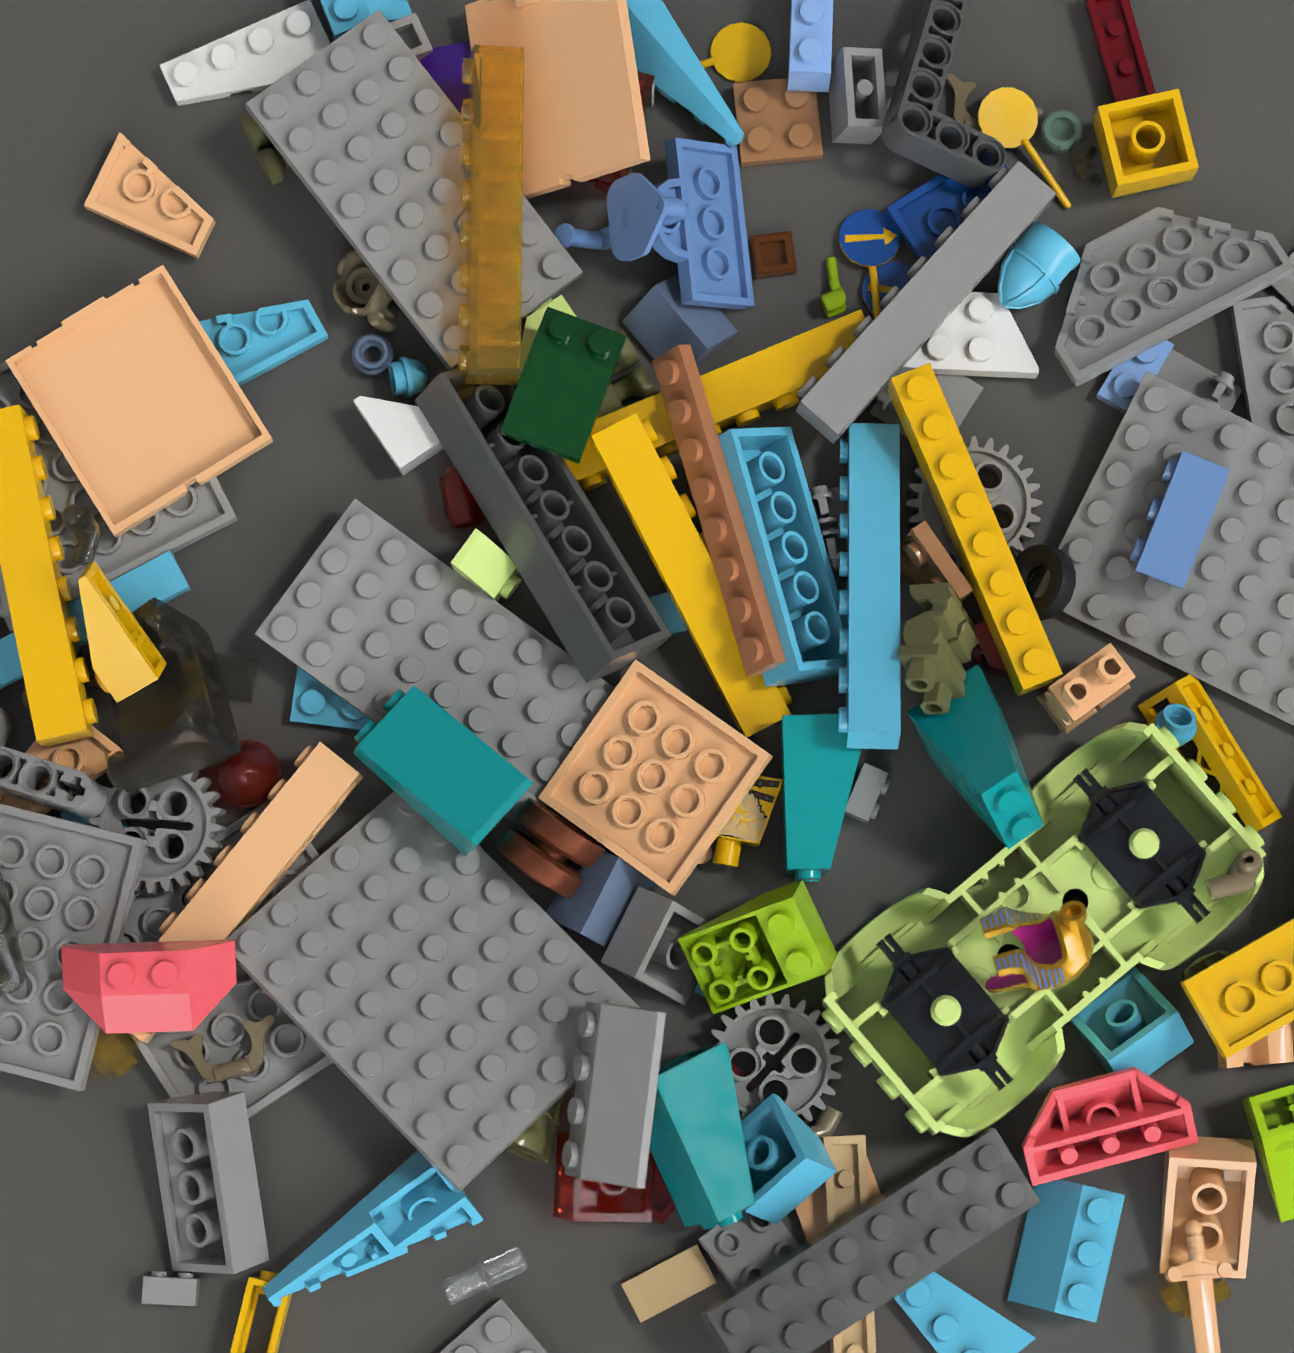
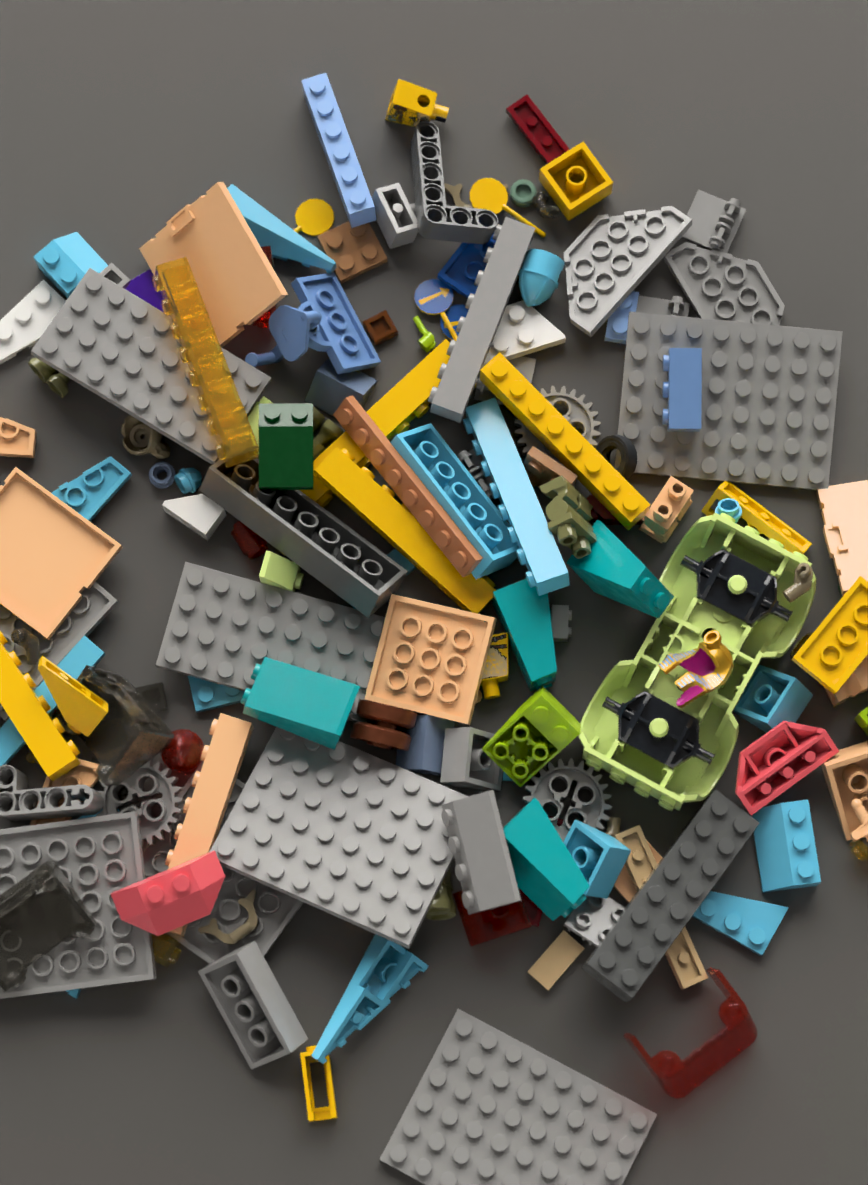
camera: 20 degrees left, 5 degrees down
(170, 1290) = (255, 1081): light grey piece -> none
(484, 1275) = (443, 998): clear axle -> none

